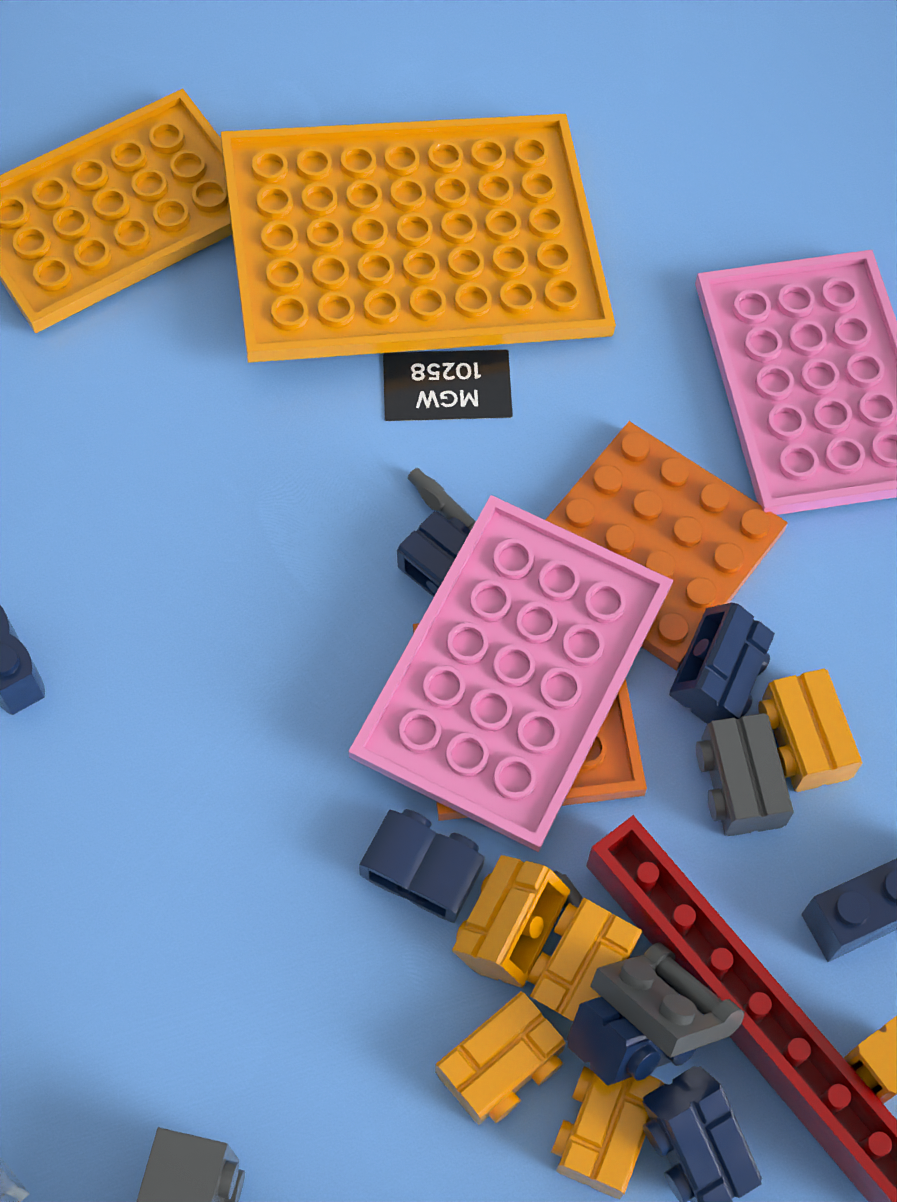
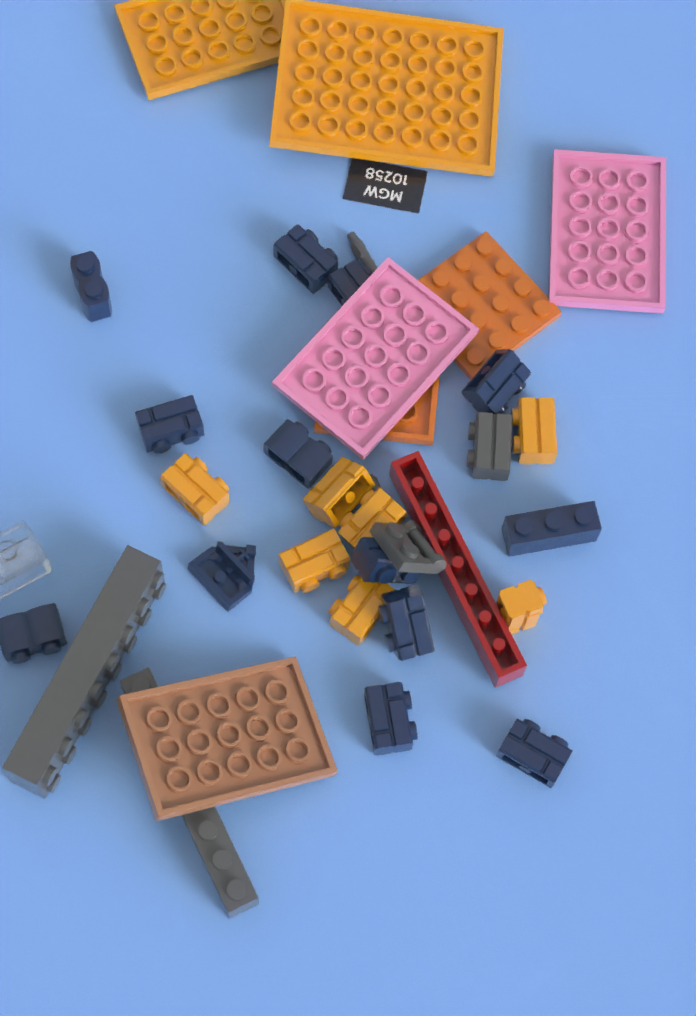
camera: 10 degrees right, 5 degrees up
(186, 867) = (170, 424): none -> dark blue brick
(258, 973) = (196, 488): none -> light orange brick
(347, 1118) = (226, 572): none -> dark blue slope
(351, 527) = (305, 257): none -> dark blue brick

